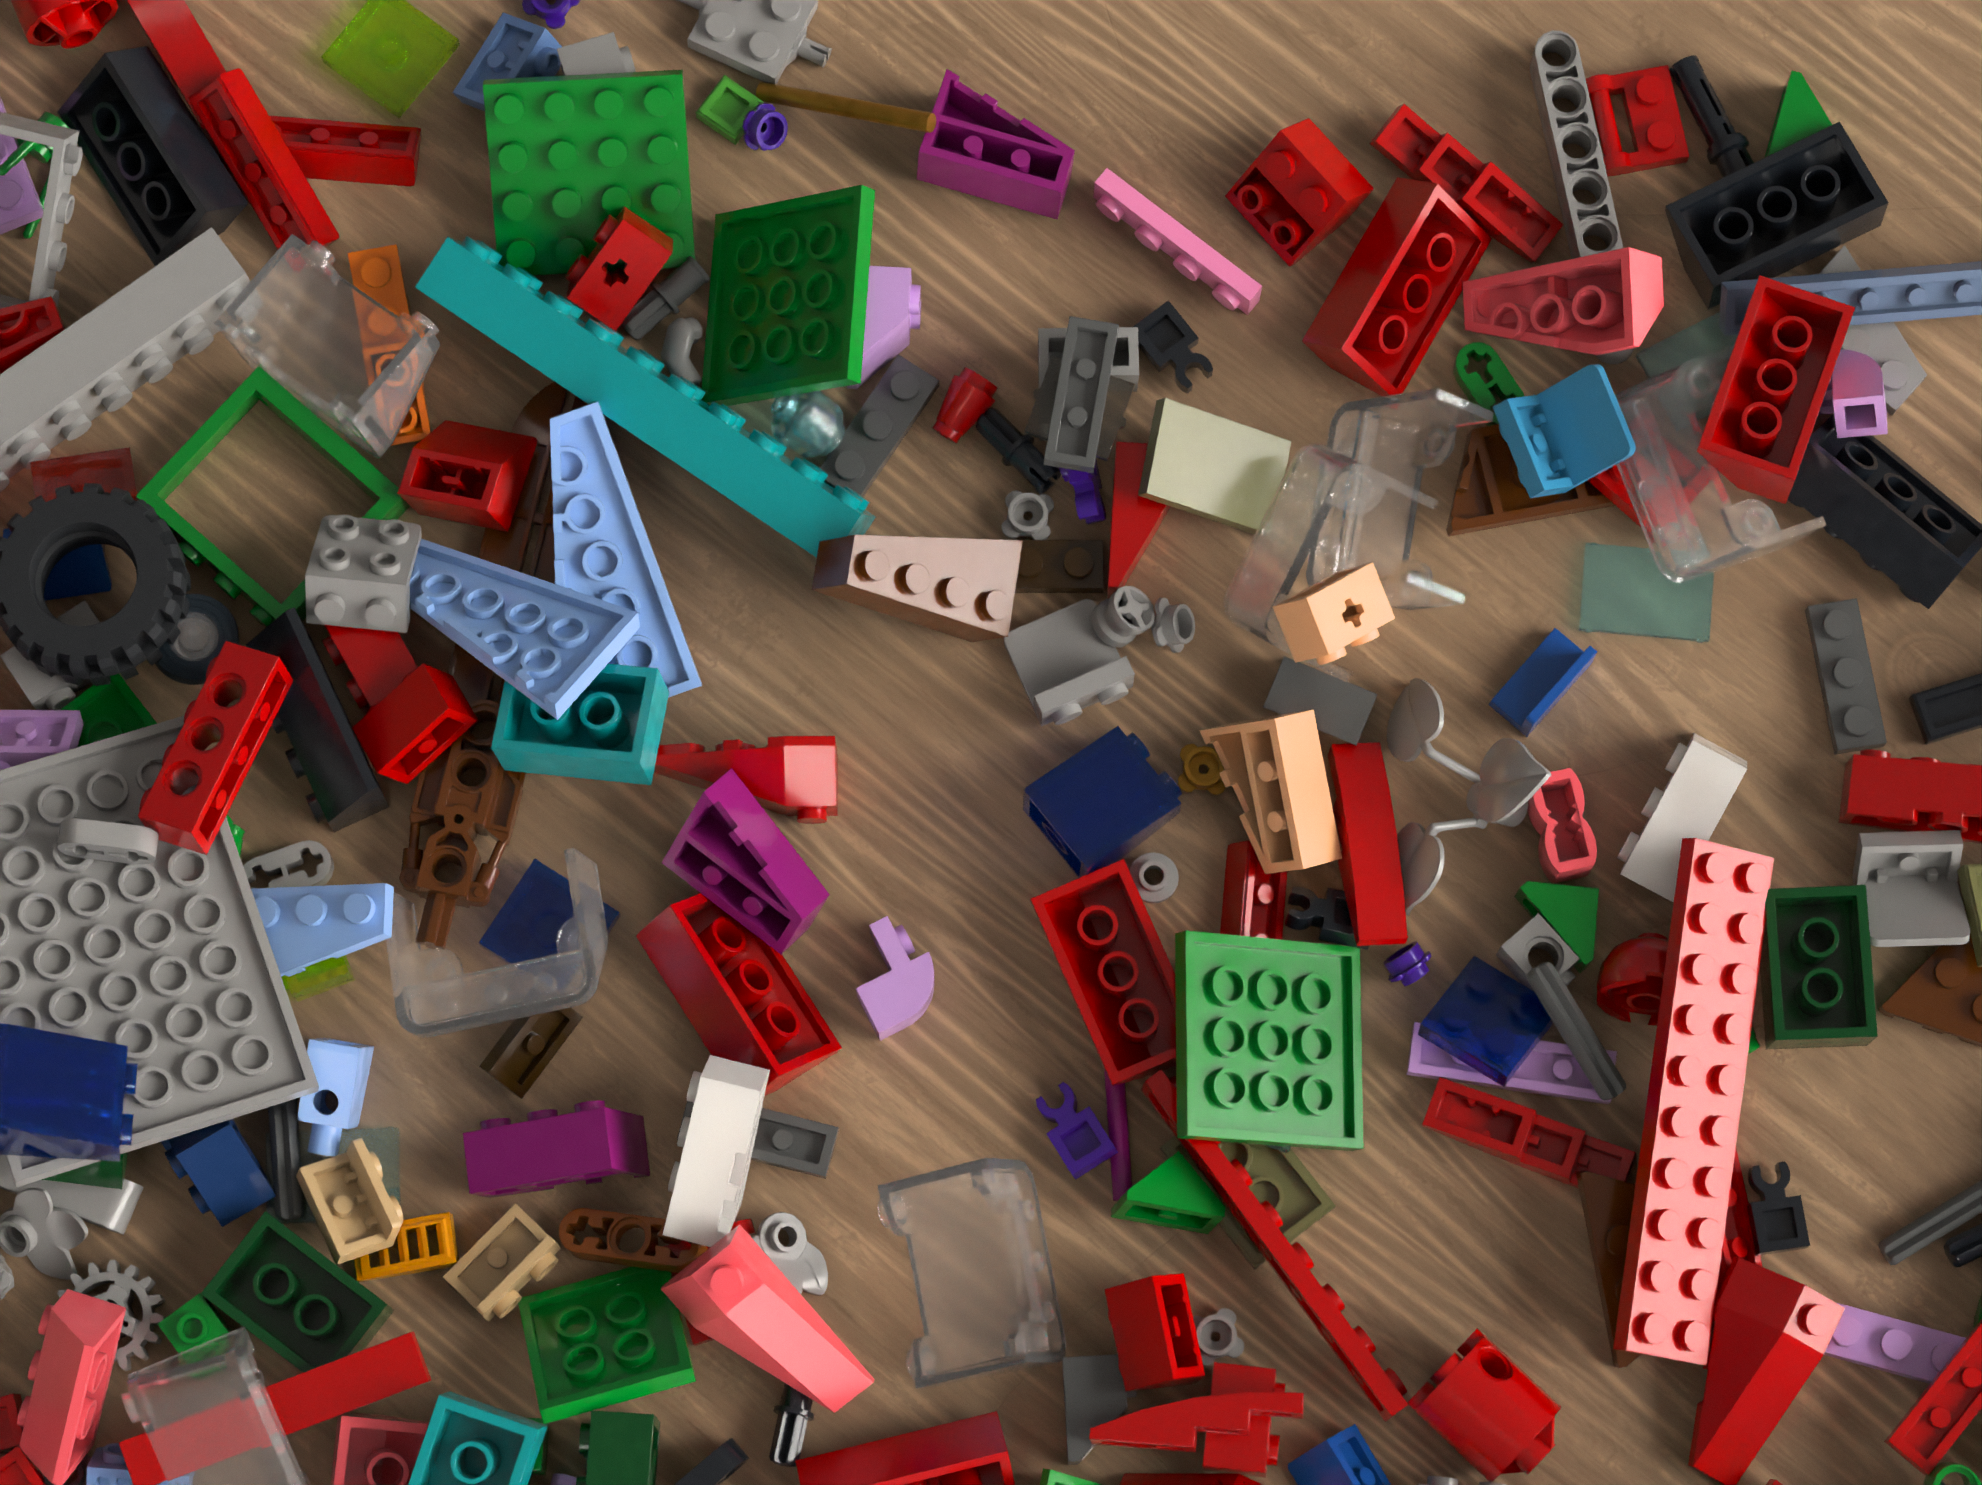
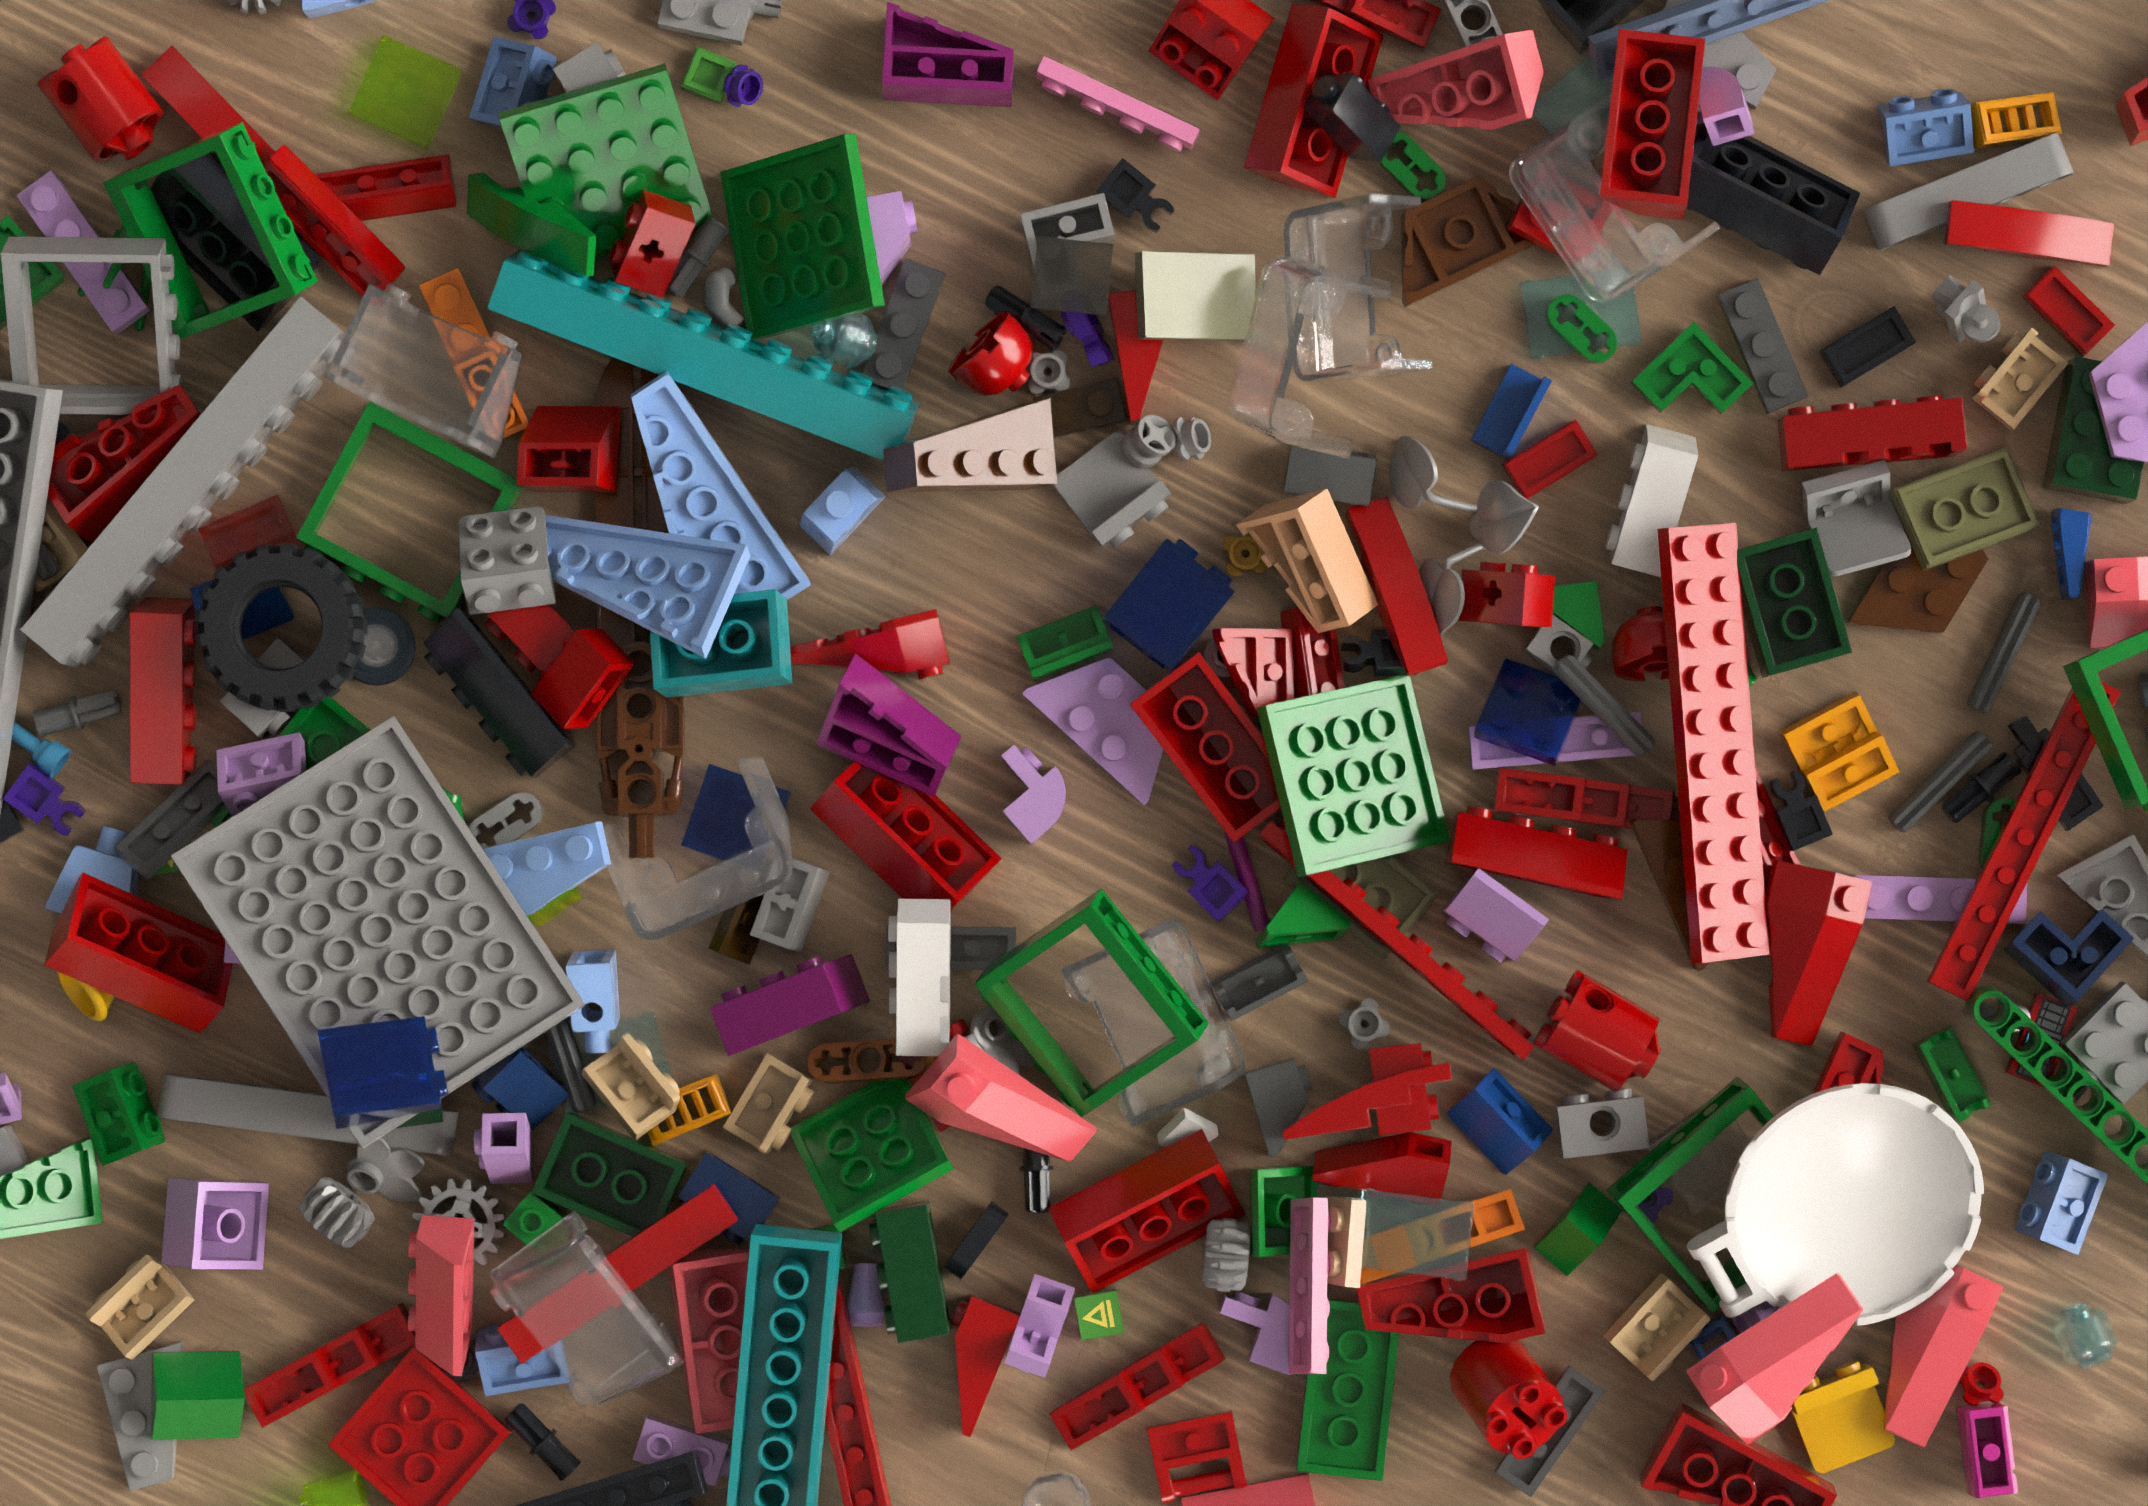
camera: 15 degrees left, 10 degrees up
(107, 841) = (358, 845): light grey beam -> none
(186, 1236) = (505, 1148): none -> lavender brick
(195, 122) = (258, 198): none -> green window
(219, 772) = (434, 764): red brick -> none
(445, 1359) = (744, 1195): none -> dark blue brick
(489, 215) = (536, 228): none -> green slope
(586, 1041) = (790, 909): none -> light grey hinge
(755, 610) = (840, 509): none -> light blue torso
(846, 107) = (808, 54): pearl gold bar -> none
(964, 403) = (971, 287): red cone -> none
(970, 1198) = (1139, 966): none -> green window
(972, 484) = (995, 358): none -> red cylinder
(974, 821) = (1065, 642): none -> green hinge
(978, 1402) = (1185, 1124): none -> white tile
(992, 915) = (1097, 715): none -> lavender wing
(1081, 394) = (1071, 267): dark grey plate -> none
(1104, 1259) = (1259, 981): none -> dark grey hinge
(1155, 1333) = (1316, 1038): red slope -> none
(1188, 889) = (1258, 664): none -> wing
(1334, 614) = (1327, 406): light nougat brick -> none
(1394, 1244) = (1493, 916): none -> lavender slope
(1407, 964) = (1452, 678): dark purple plate -> none
(1436, 310) = (1352, 116): none -> black brick
(1461, 1188) = (1538, 855): none -> red slope
(1492, 881) = (1508, 597): none -> red brick
(1565, 432) = (1484, 199): dark azure bracket -> none
(1566, 840) = (1559, 545): coral brick -> none
(1580, 742) = (1549, 459): none -> red tile
(1634, 614) = (1574, 336): none -> green beam
(1763, 673) = (1693, 361): none -> green plate
(1838, 1153) = (1839, 751): none -> light orange slope

